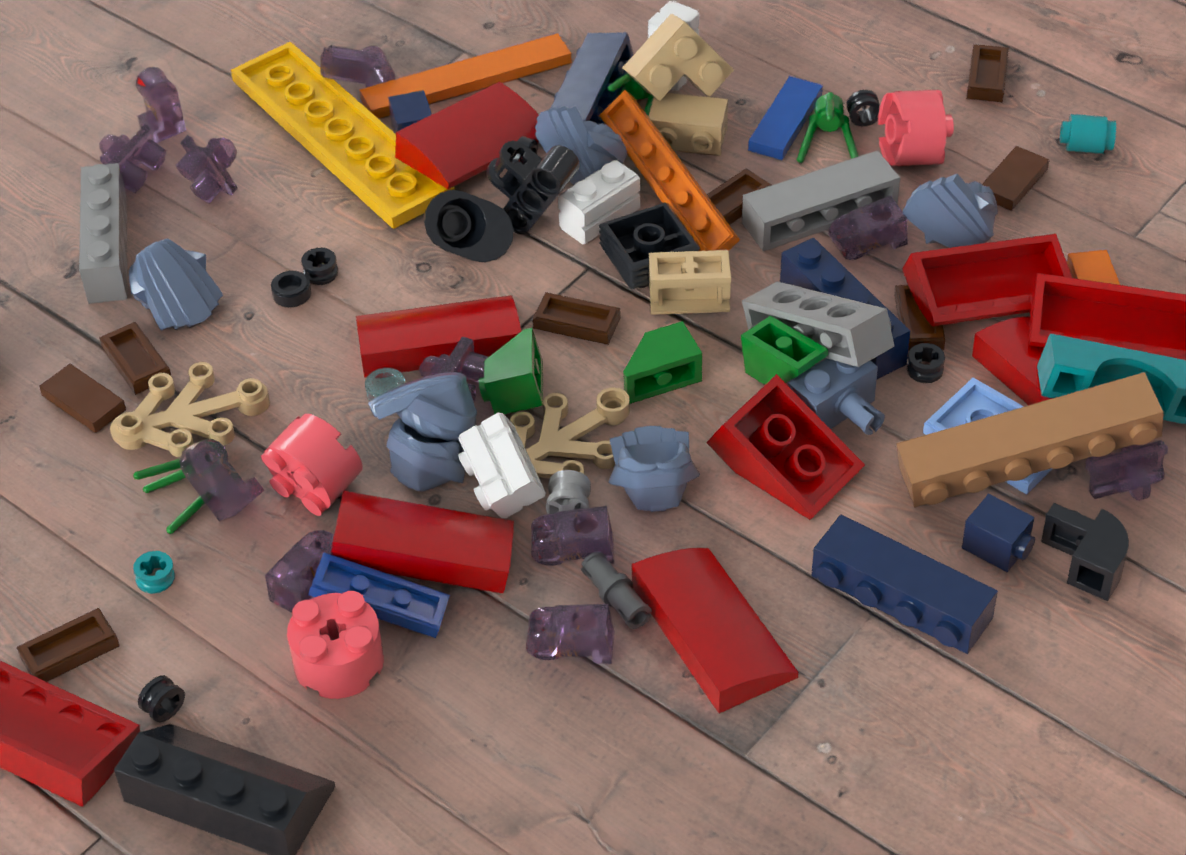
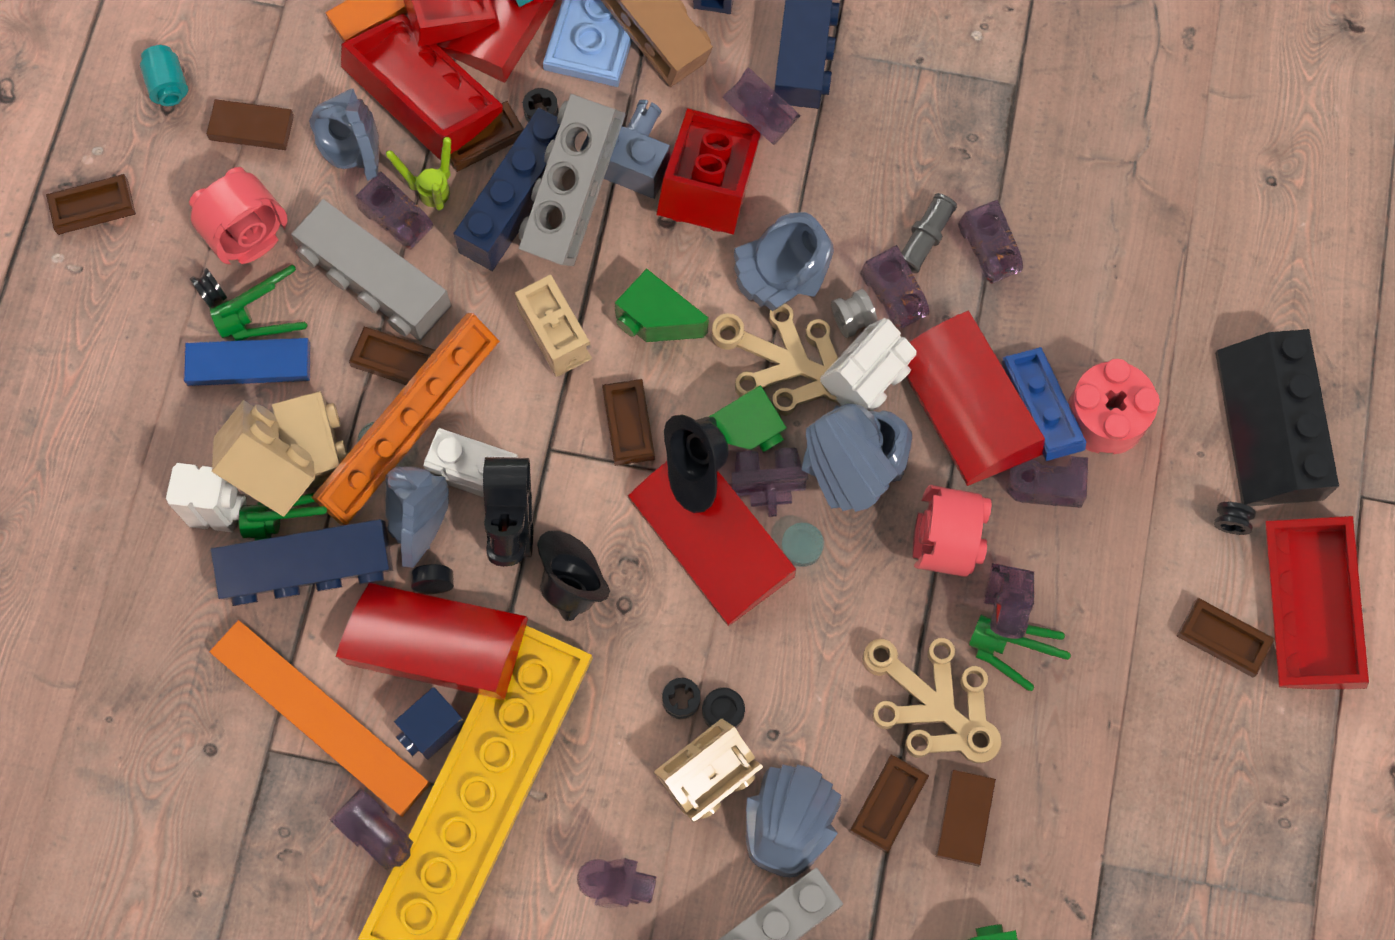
camera: 120 degrees left, 25 degrees up
(162, 579) = (1118, 603): teal bush -> none
(248, 249) = (708, 770): none -> hinge
(501, 311) = (693, 457): none -> black piece
(635, 235) = (508, 367): black brick -> none
(711, 626) = (916, 151): red slope -> none
(779, 350) = (617, 198): green slope -> none
(825, 501) = (761, 106): none -> clear purple hips
(884, 259) = (430, 183): none -> lime plant

